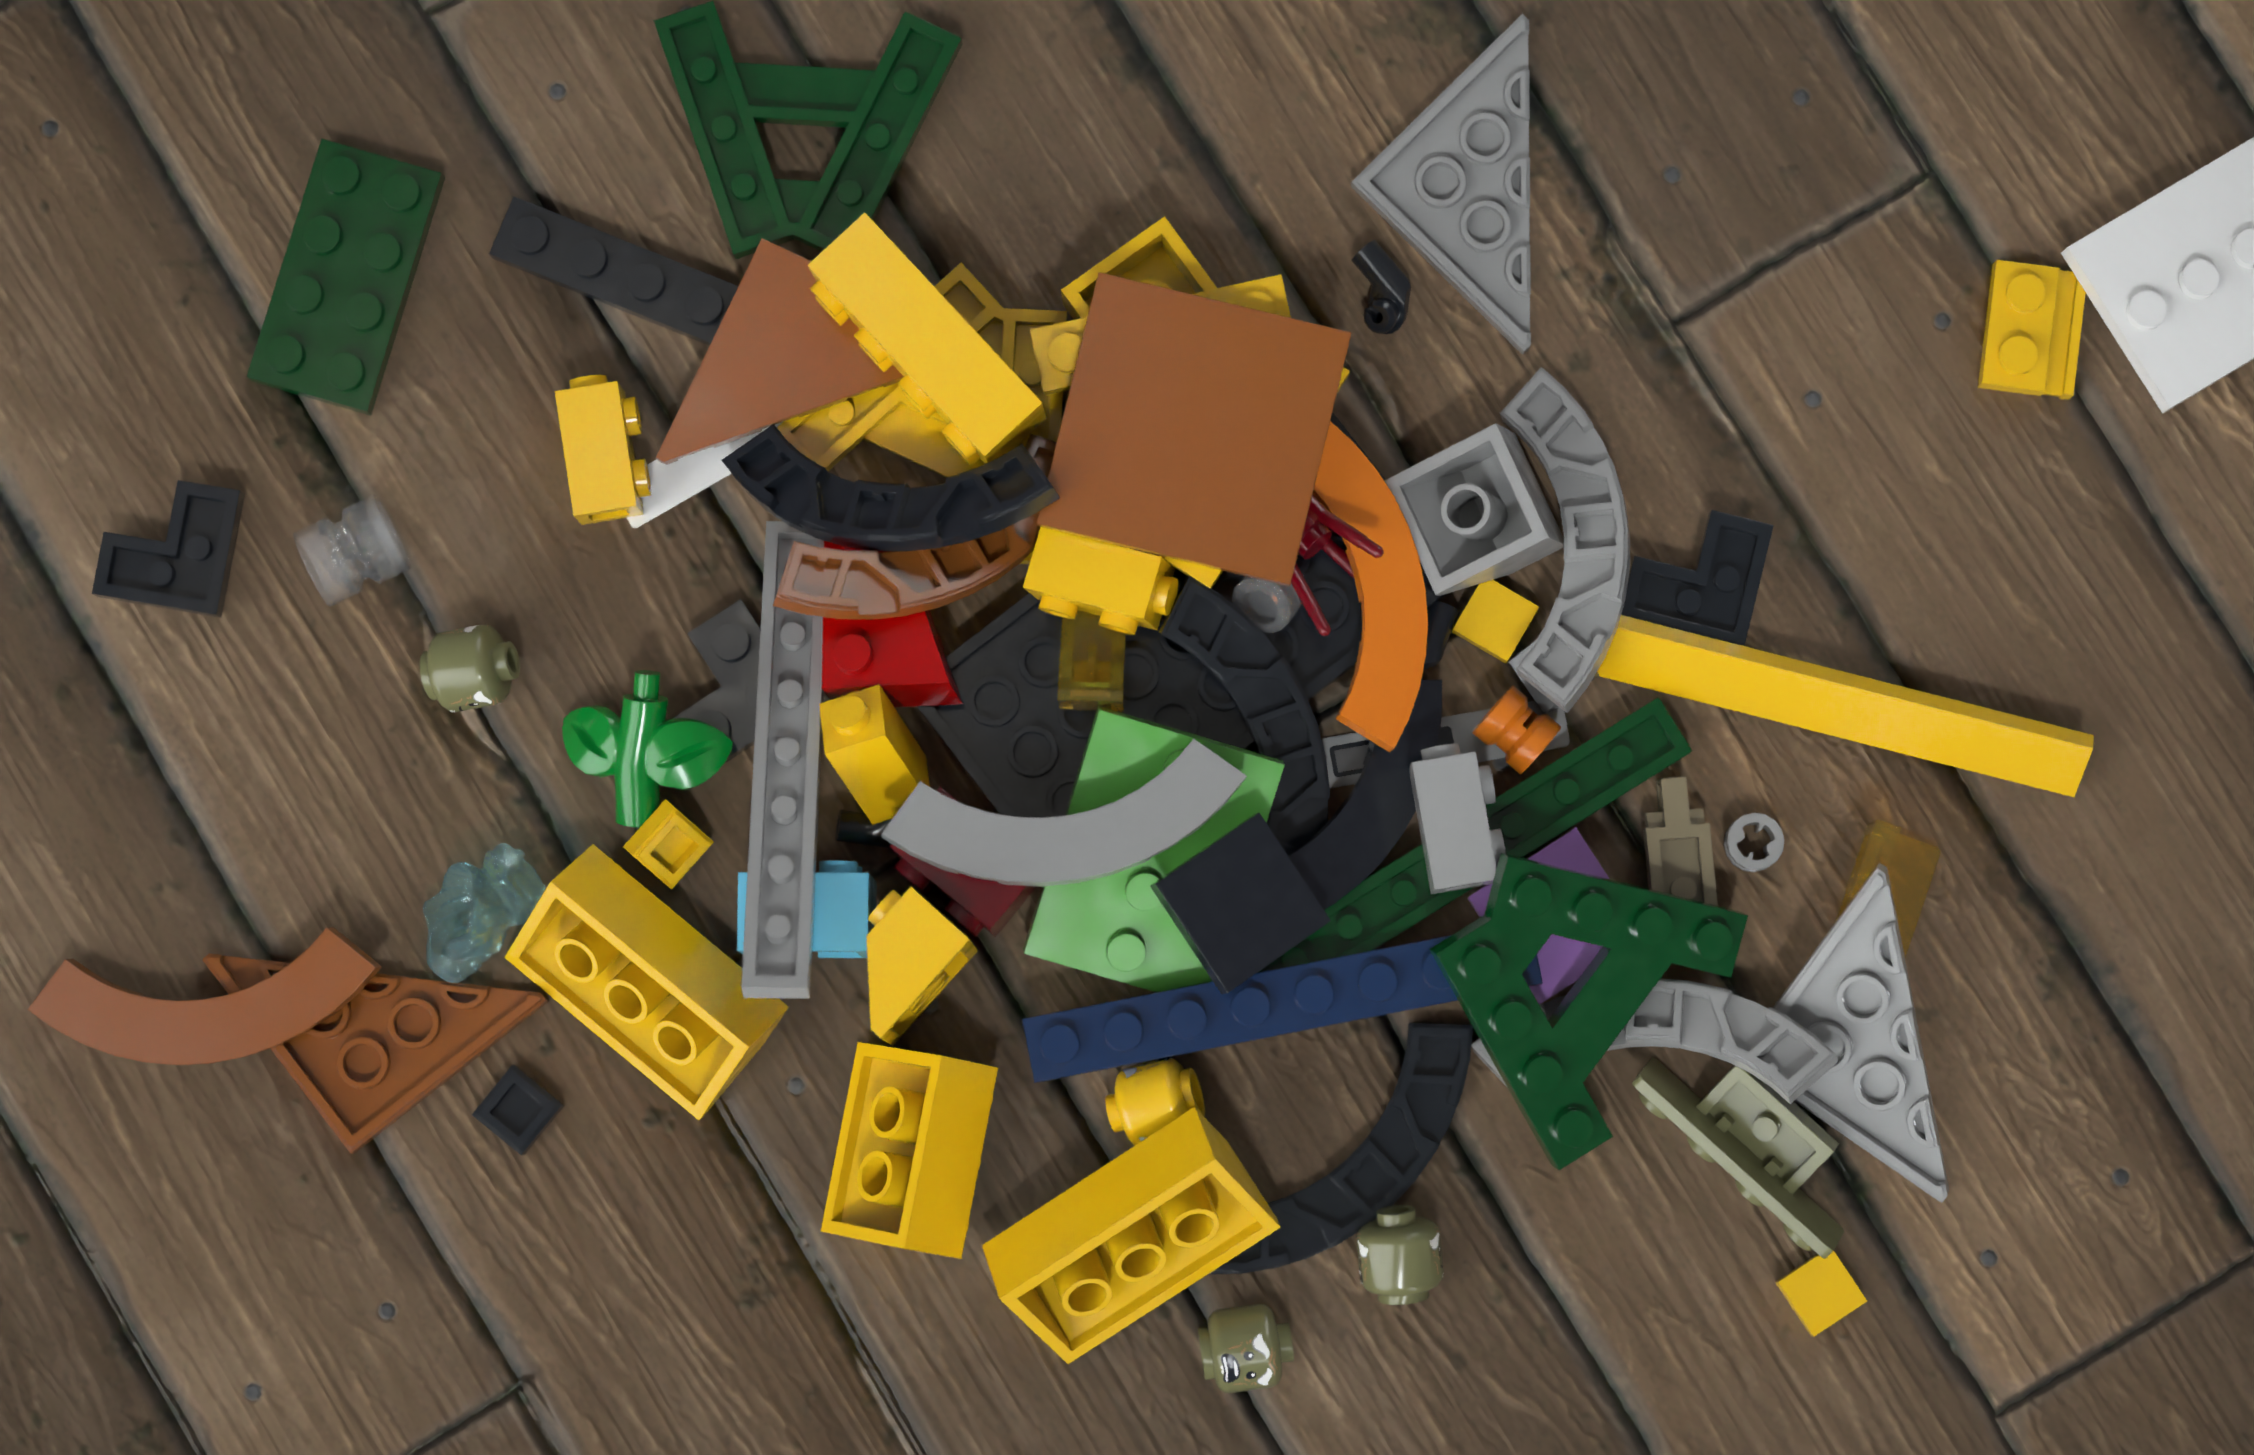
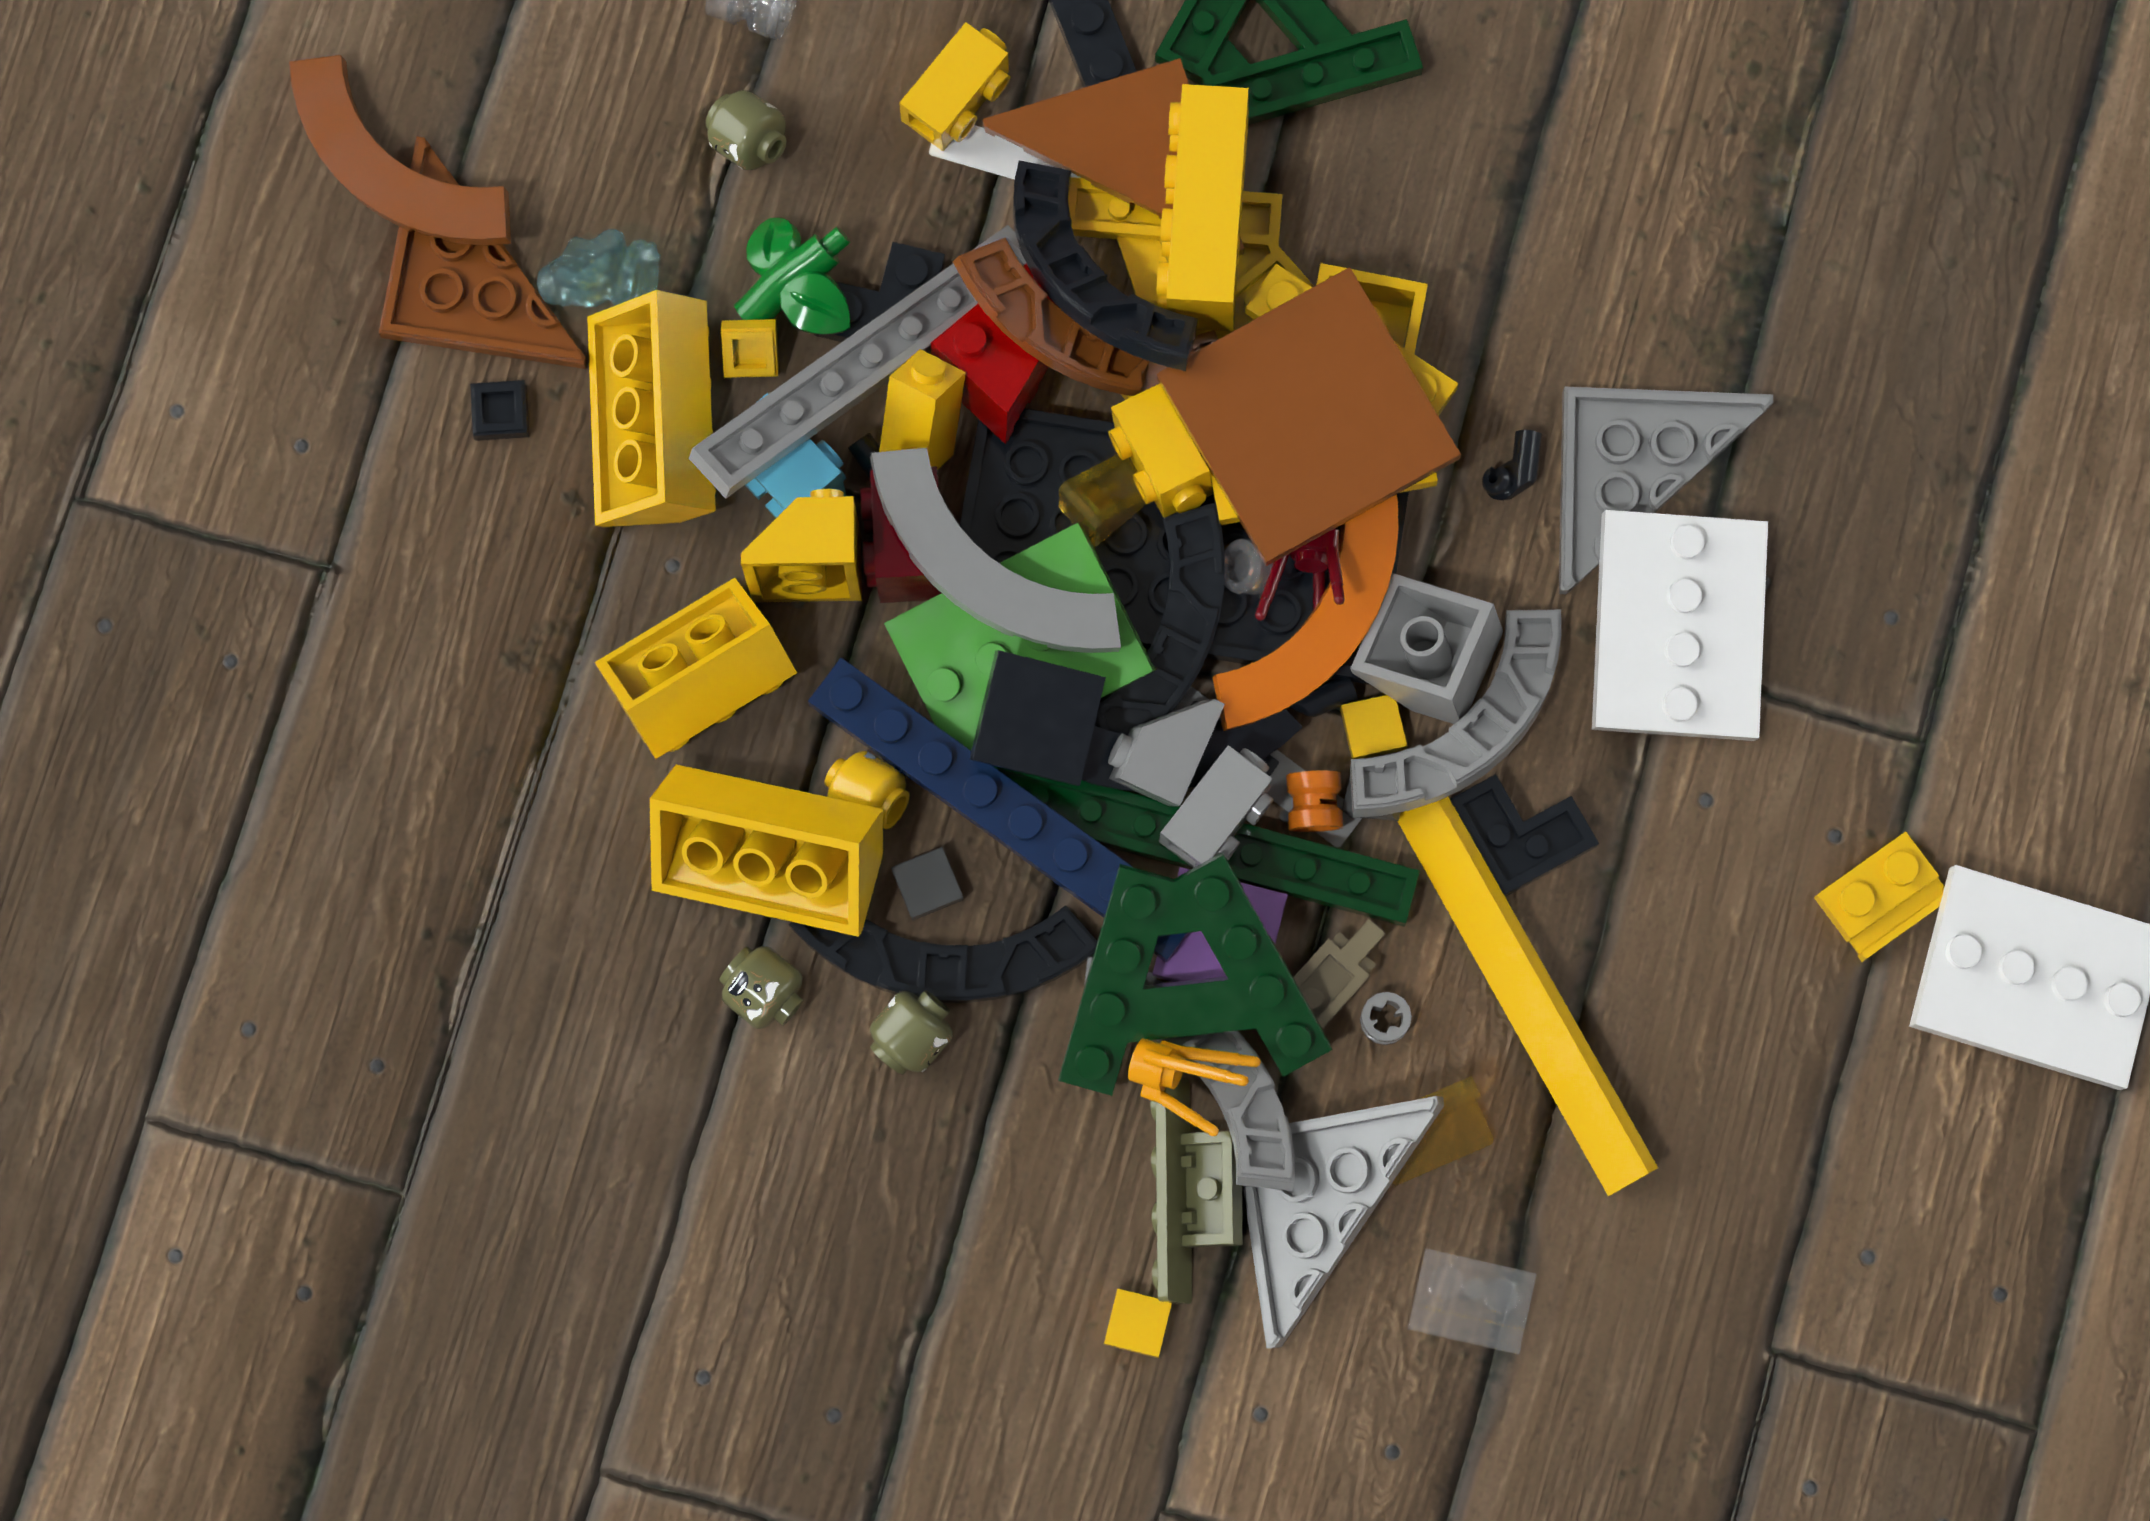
camera: 40 degrees right, 5 degrees down
(1281, 1123) = (927, 883): none -> dark grey tile
(1364, 817) = (1165, 752): none -> light grey slope
(1631, 1073) = (1163, 1064): none -> light orange plant
(1648, 280) = (1680, 625): none -> white plate
(2059, 994) = (1471, 1301): none -> clear plate

